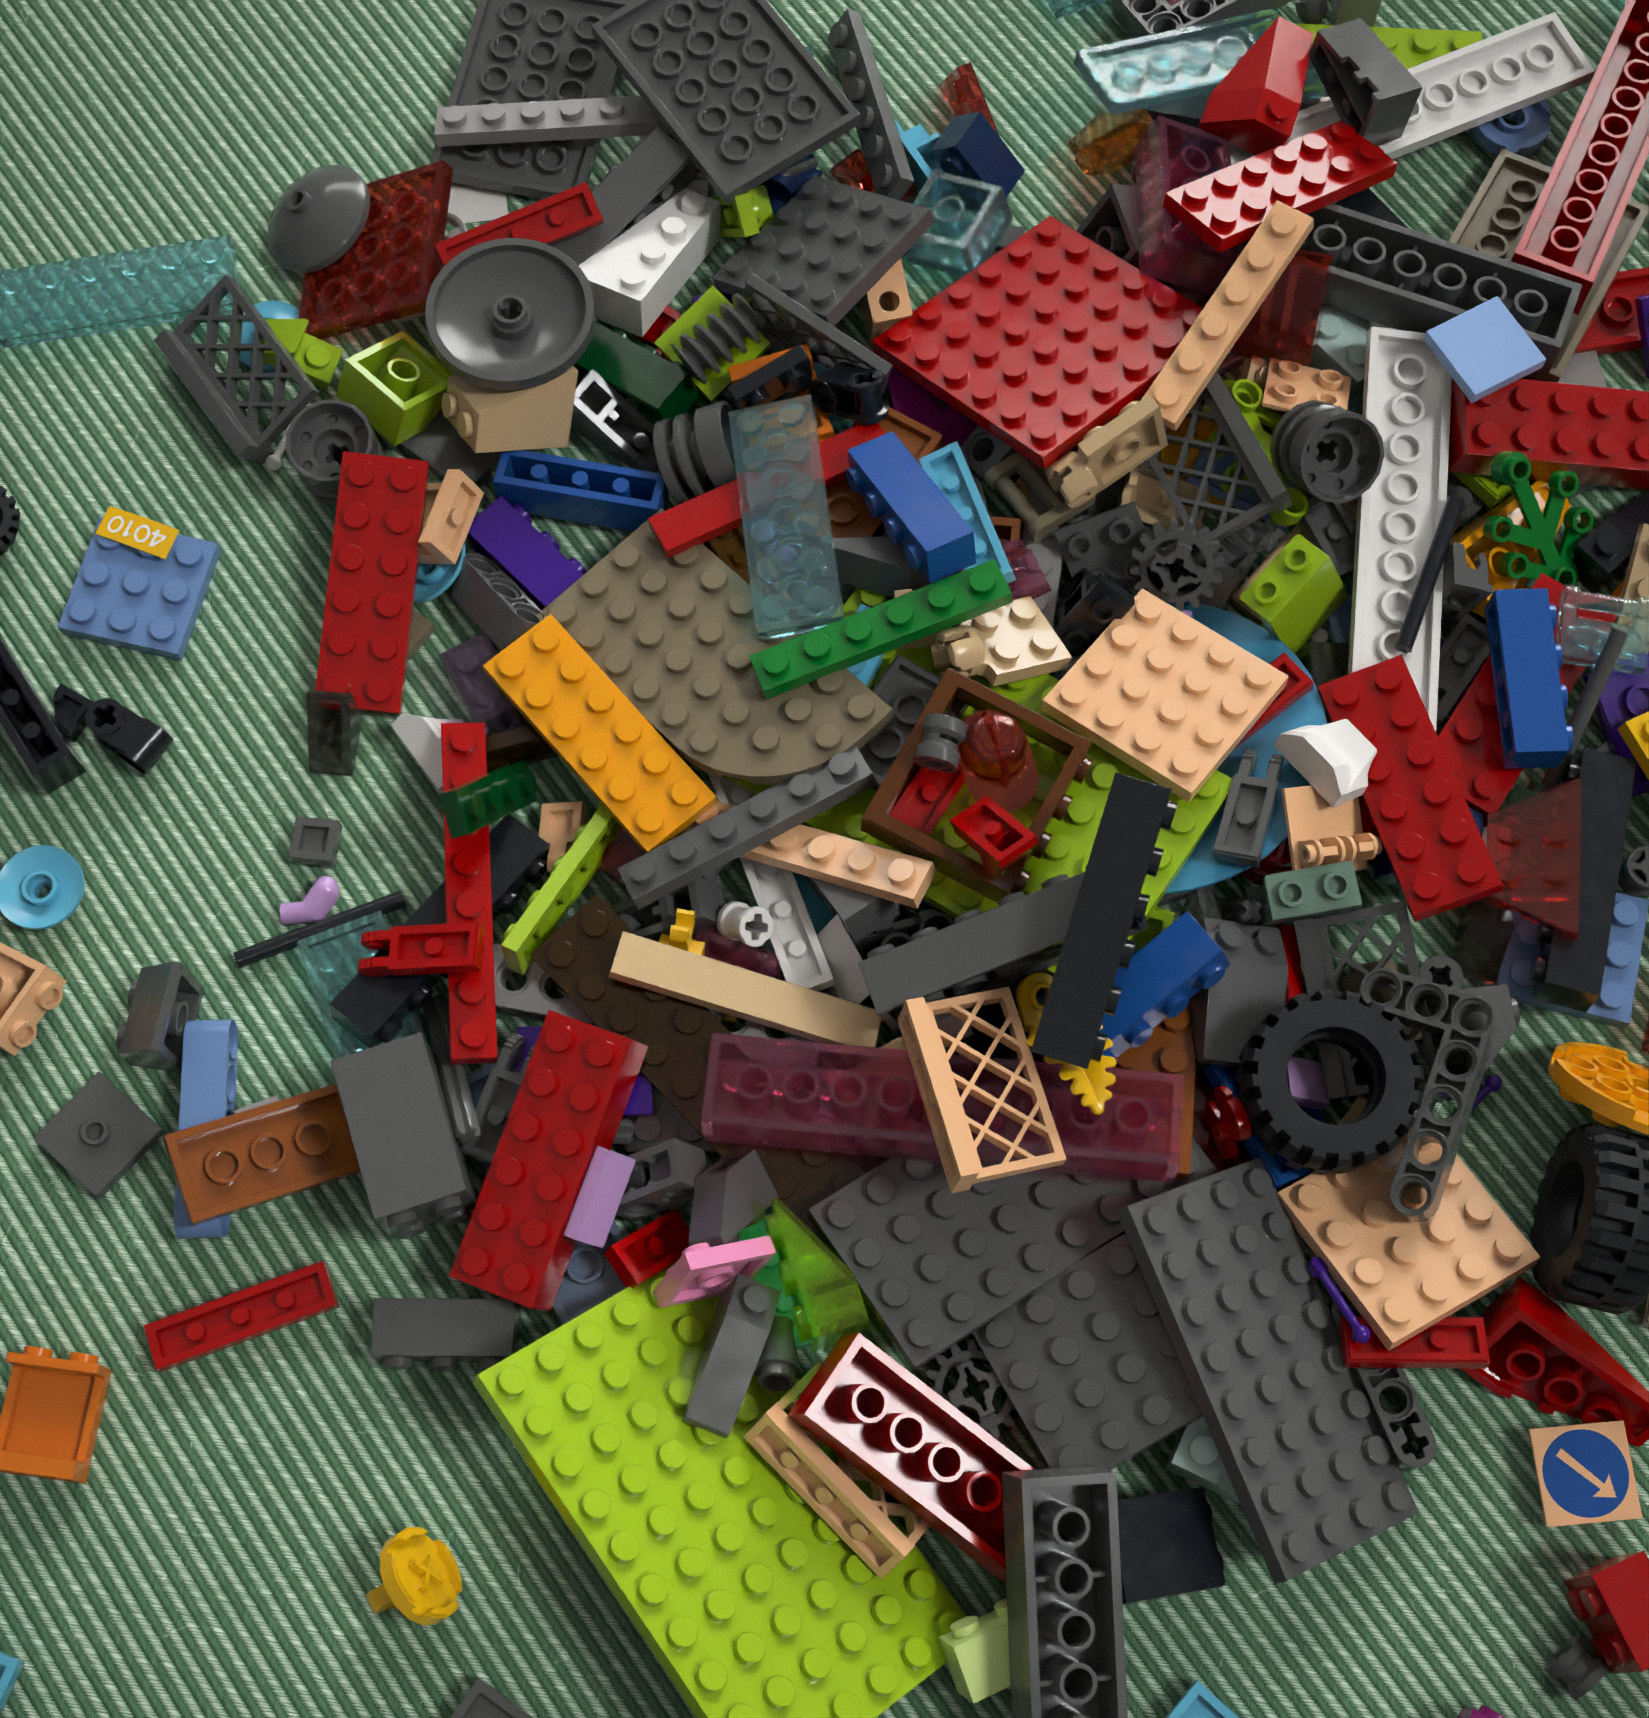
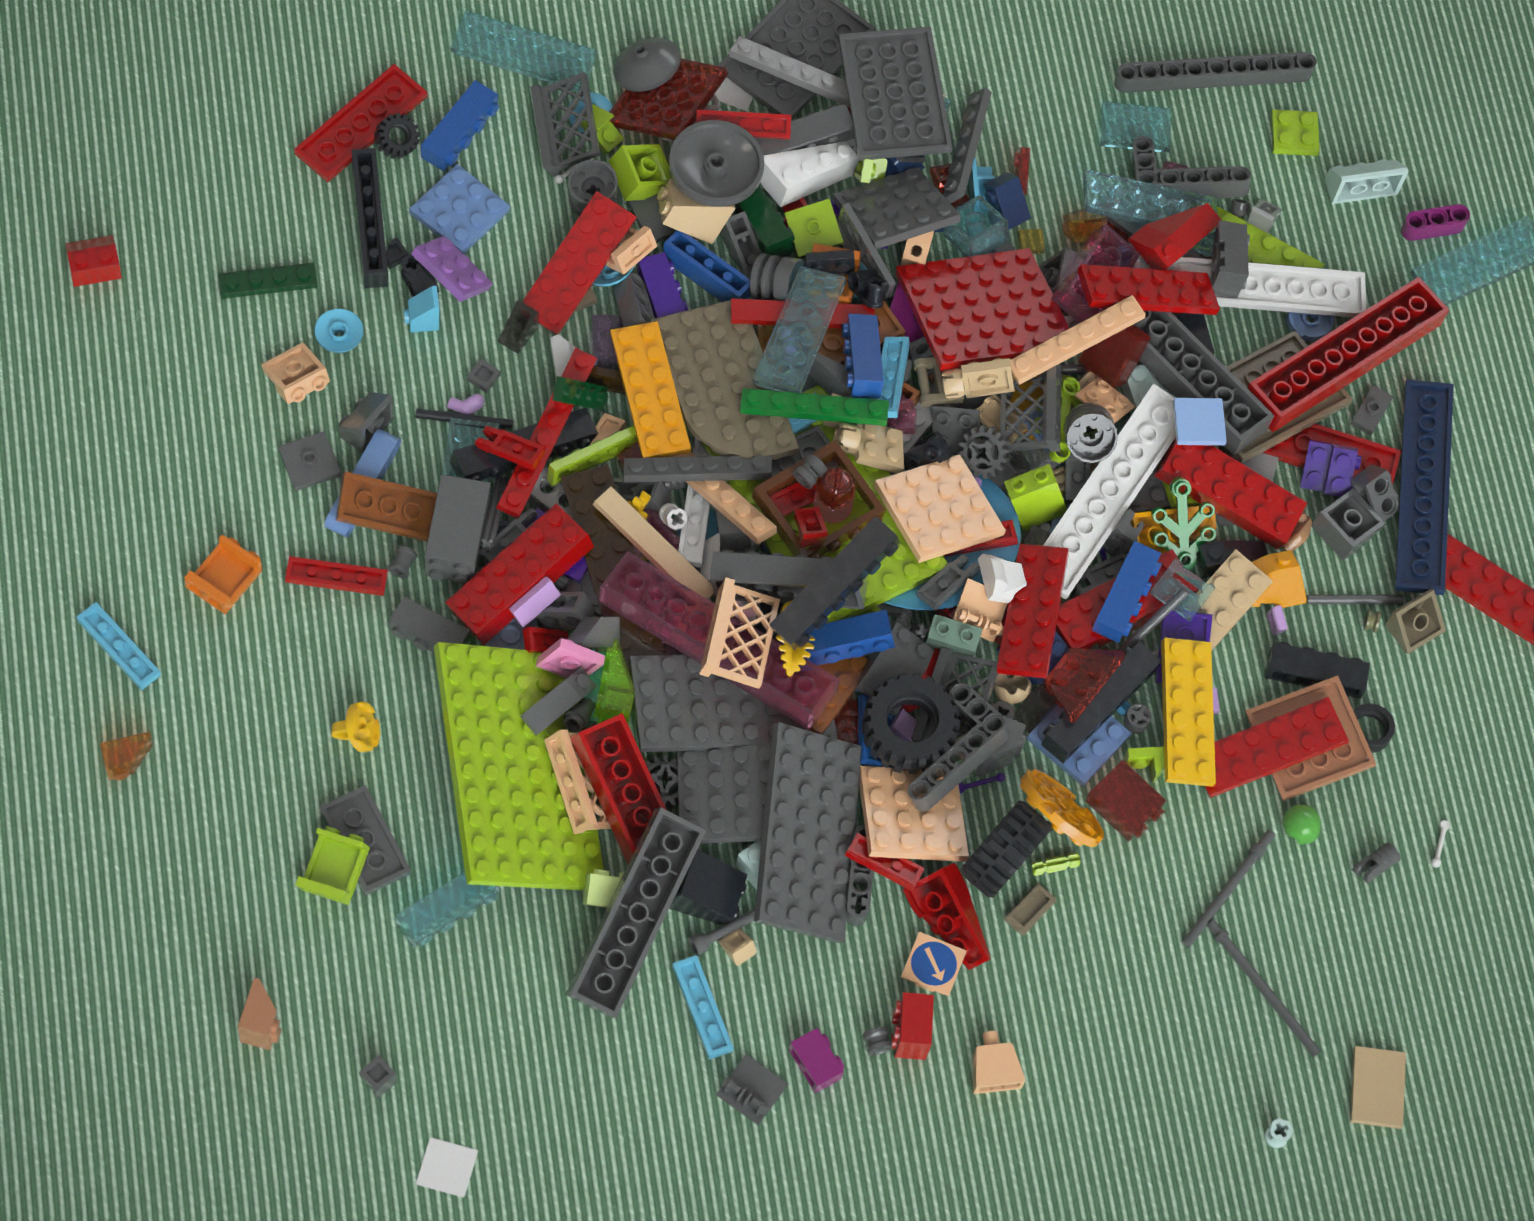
camera: 15 degrees right, 5 degrees down
(73, 455) = (459, 126): none -> blue brick
(137, 532) = (472, 180): yellow sticker -> none
(162, 785) = (423, 311): none -> medium azure slope
(174, 691) = (452, 268): none -> medium lavender plate
(340, 1232) = (402, 561): none -> dark grey bush
(718, 338) = (816, 227): dark grey piece -> none
(1041, 203) = (1032, 239): none -> clear yellow tile
(1190, 1647) = (700, 942): none -> dark grey piece
(1229, 1123) = (854, 721): red piece -> none
(1250, 1617) = (738, 946): none -> tan slope
(1319, 1269) = (858, 807): dark purple hinge -> none
(1429, 574) = (1109, 518): black bar -> none
(1436, 933) = (1012, 689): none -> tan hair

